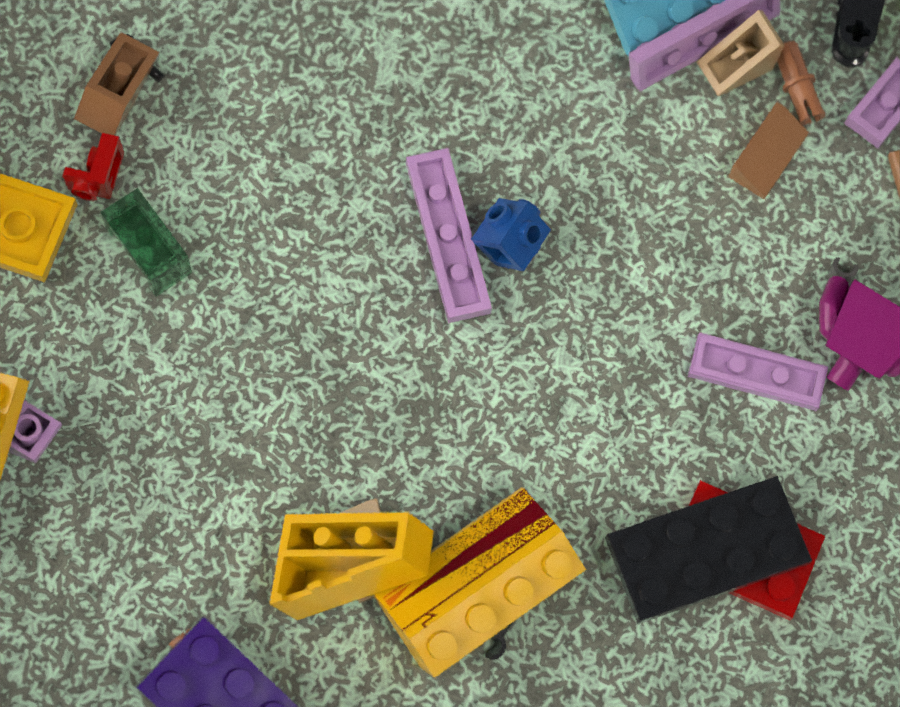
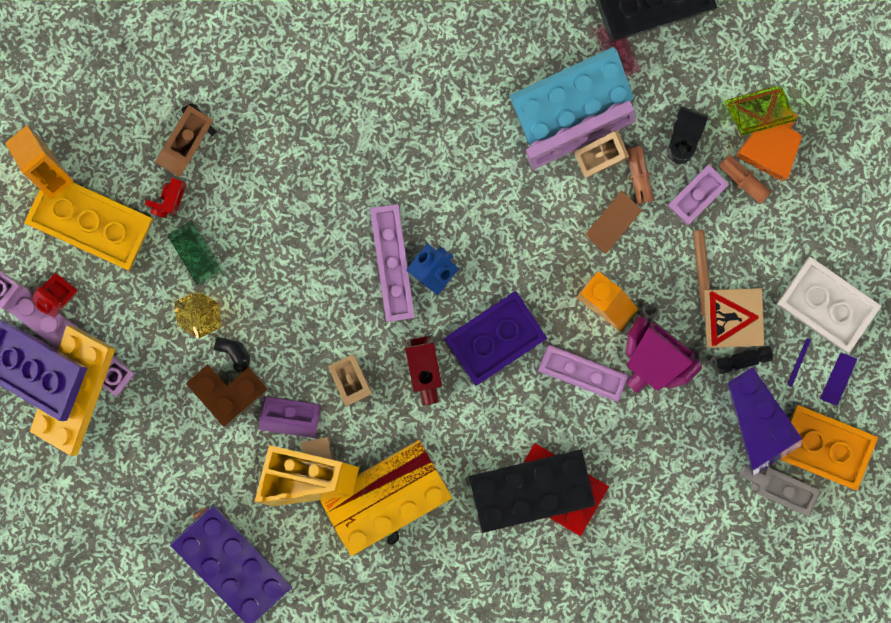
camera: 15 degrees right, 15 degrees up
(155, 334) = (197, 314): none -> clear yellow panel
(213, 455) = (225, 399): none -> reddish brown brick
(219, 384) = (236, 351): none -> black arm
(311, 479) = (289, 417): none -> medium lavender slope
(404, 413) = (350, 380): none -> tan slope
(516, 357) = (422, 357): none -> dark red torso
(618, 330) = (495, 338): none -> dark purple plate
(782, 251) = (608, 301): none -> light orange slope

